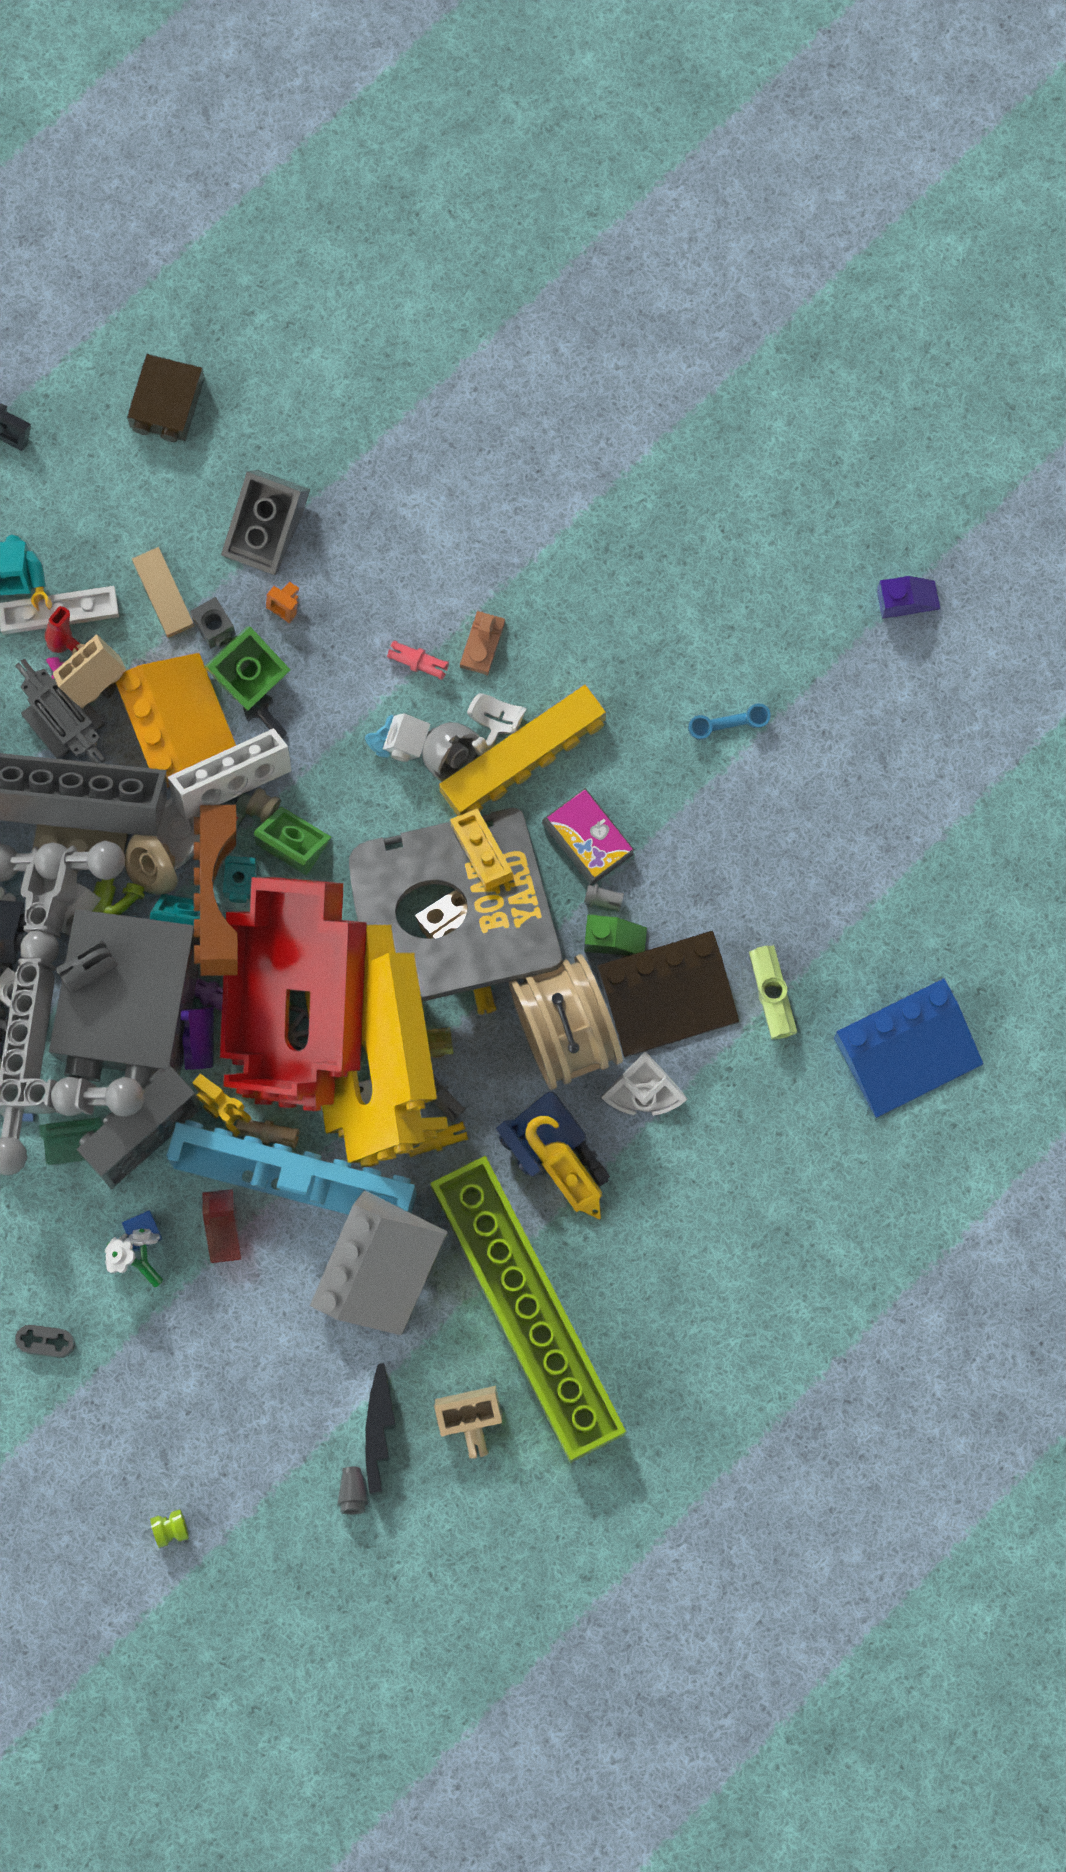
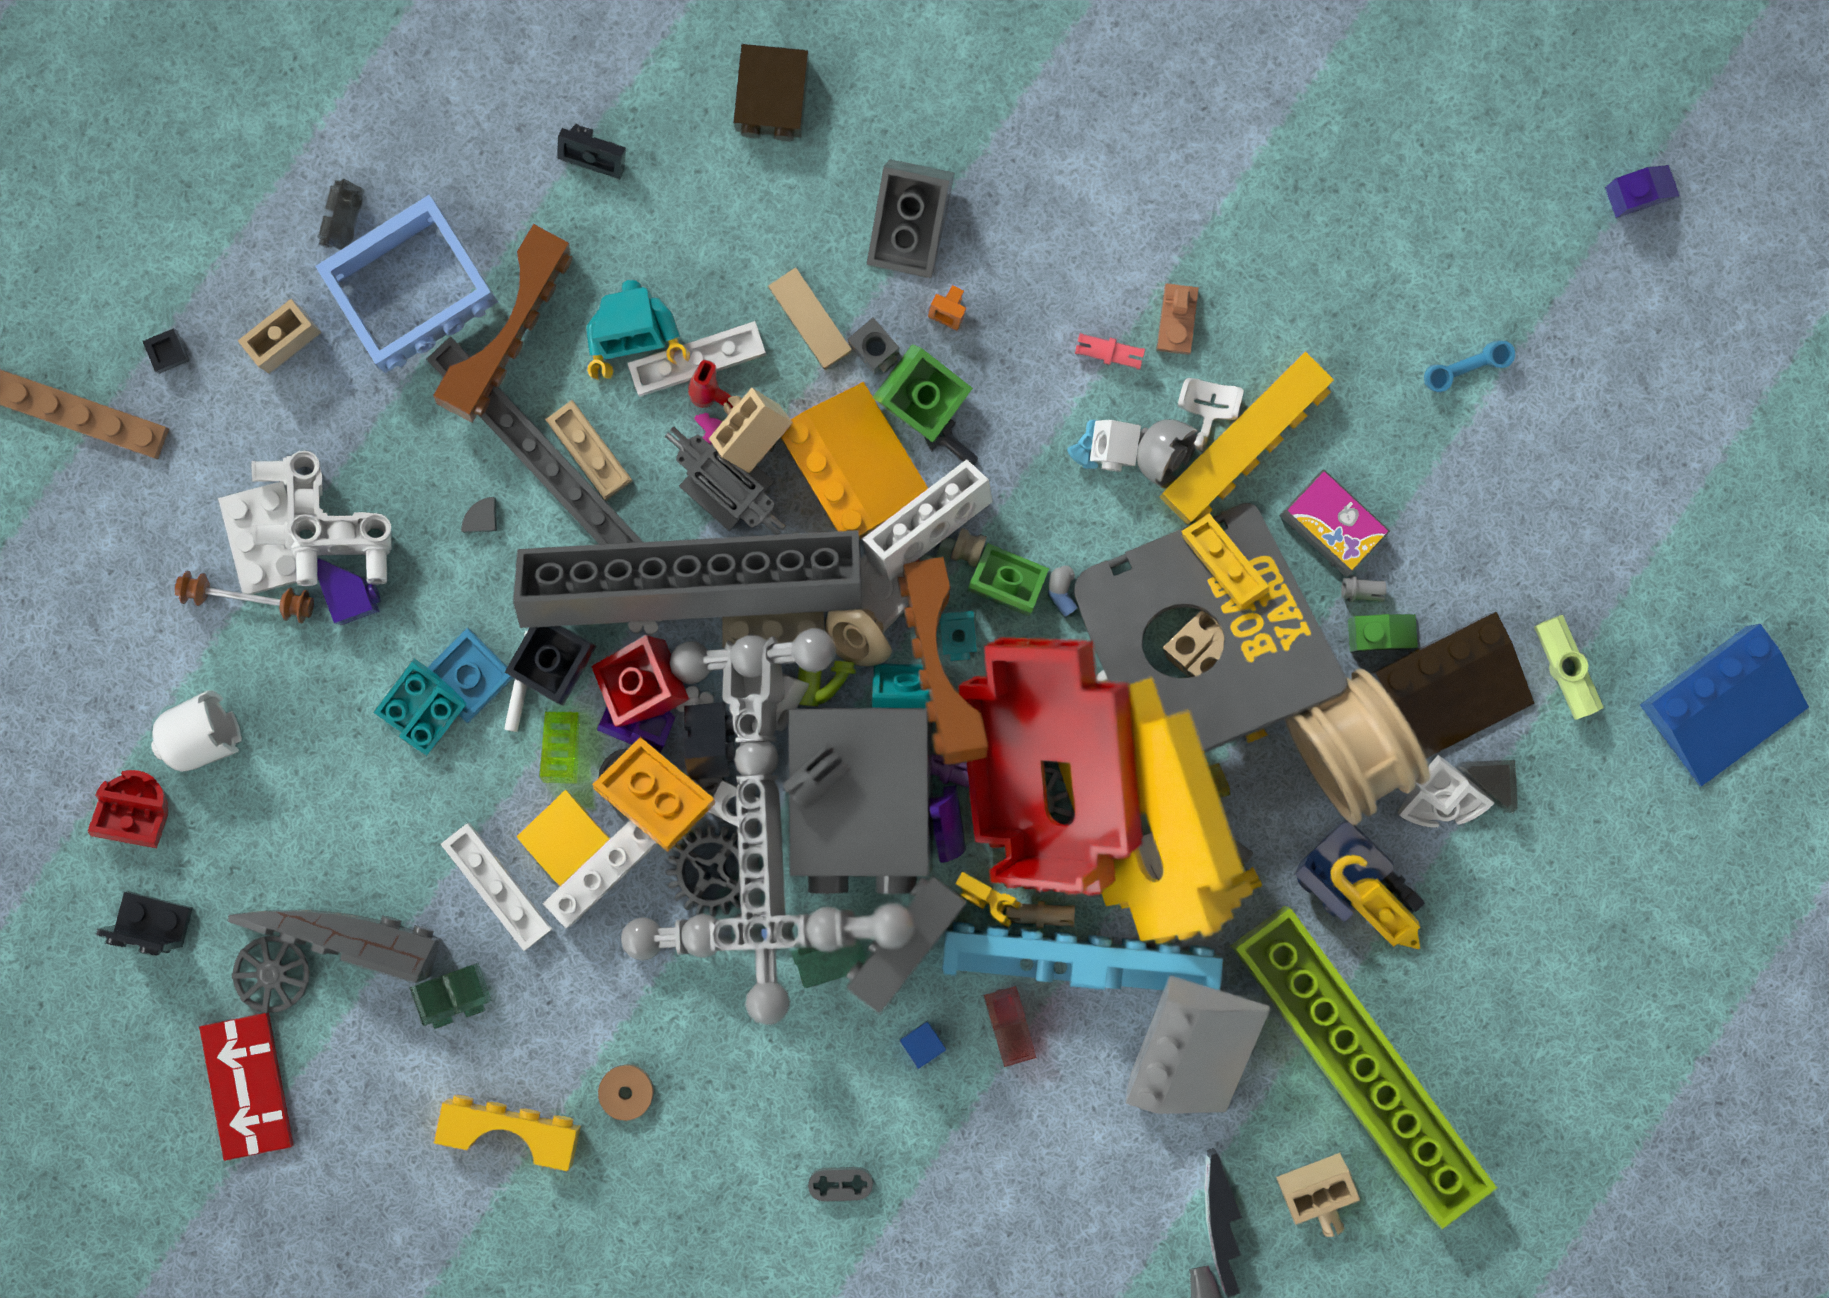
camera: 10 degrees left, 10 degrees up
(120, 1254) = (912, 1086): white plant -> none
(335, 856) = (1059, 587): none -> arm
(558, 1000) = (1356, 734): black hinge -> none
(689, 1077) = (1495, 779): none -> clear smoke slope

